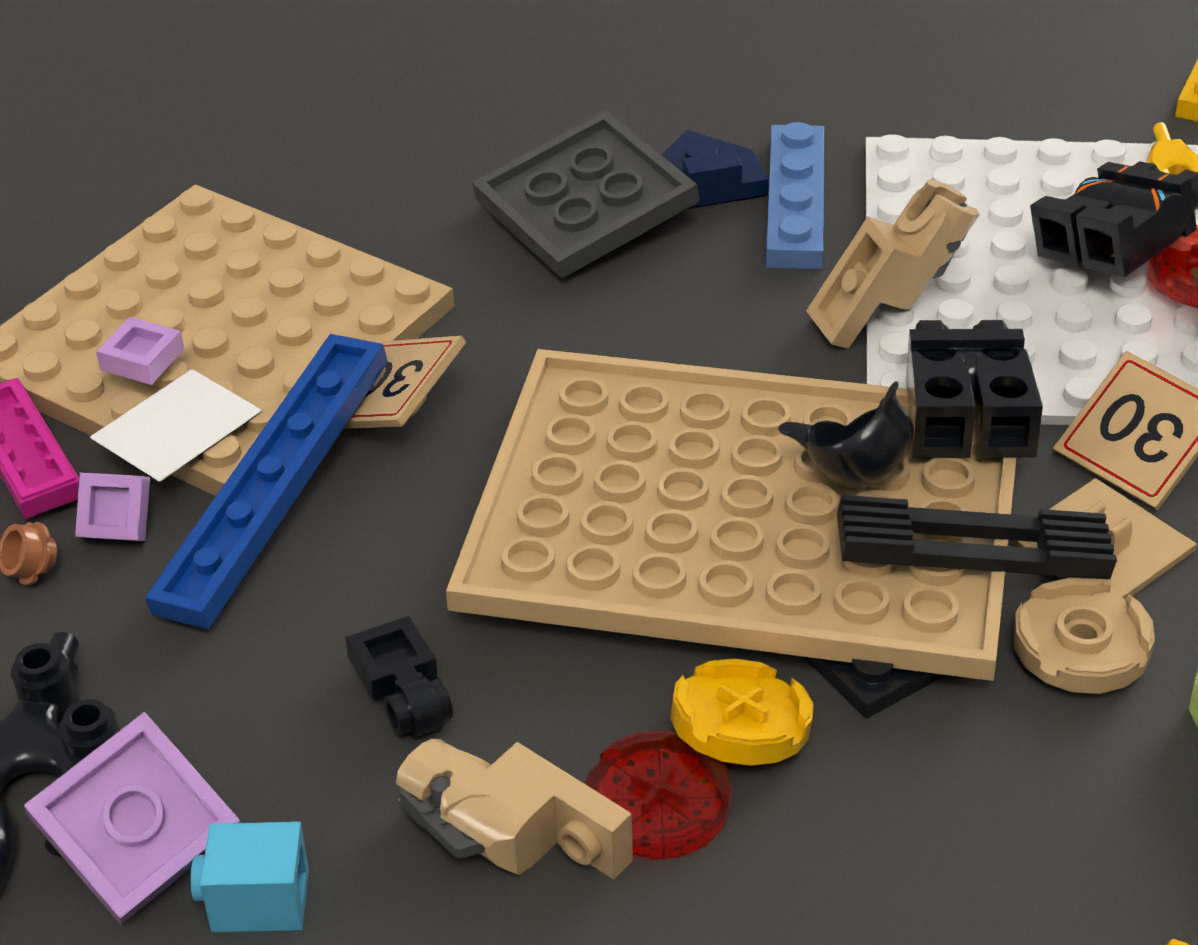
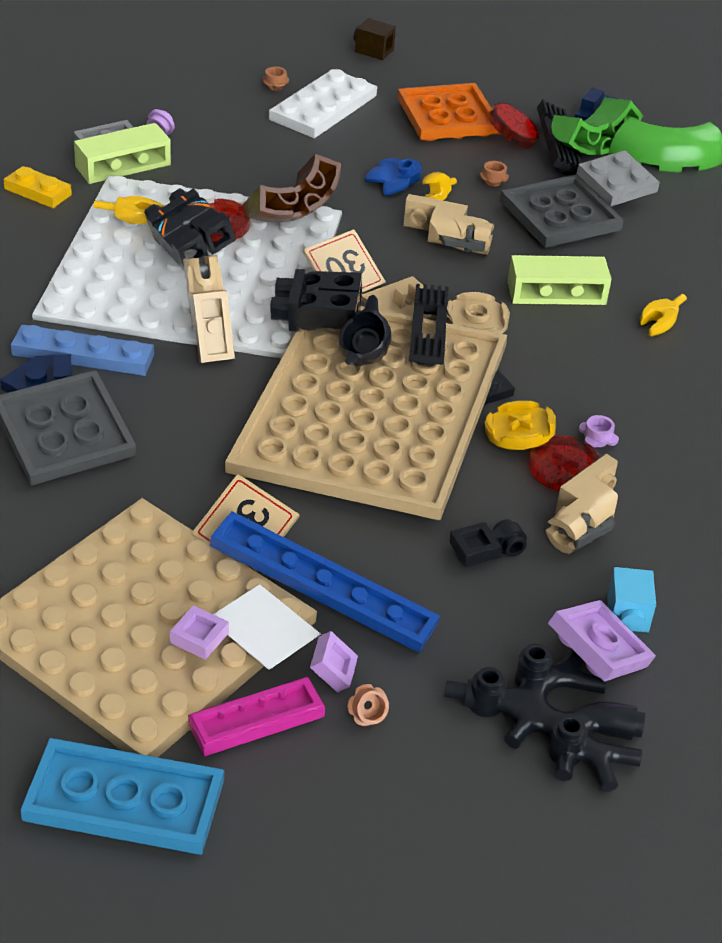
camera: 90 degrees left, 0 degrees up
(755, 827) = (599, 431): none -> lavender plate

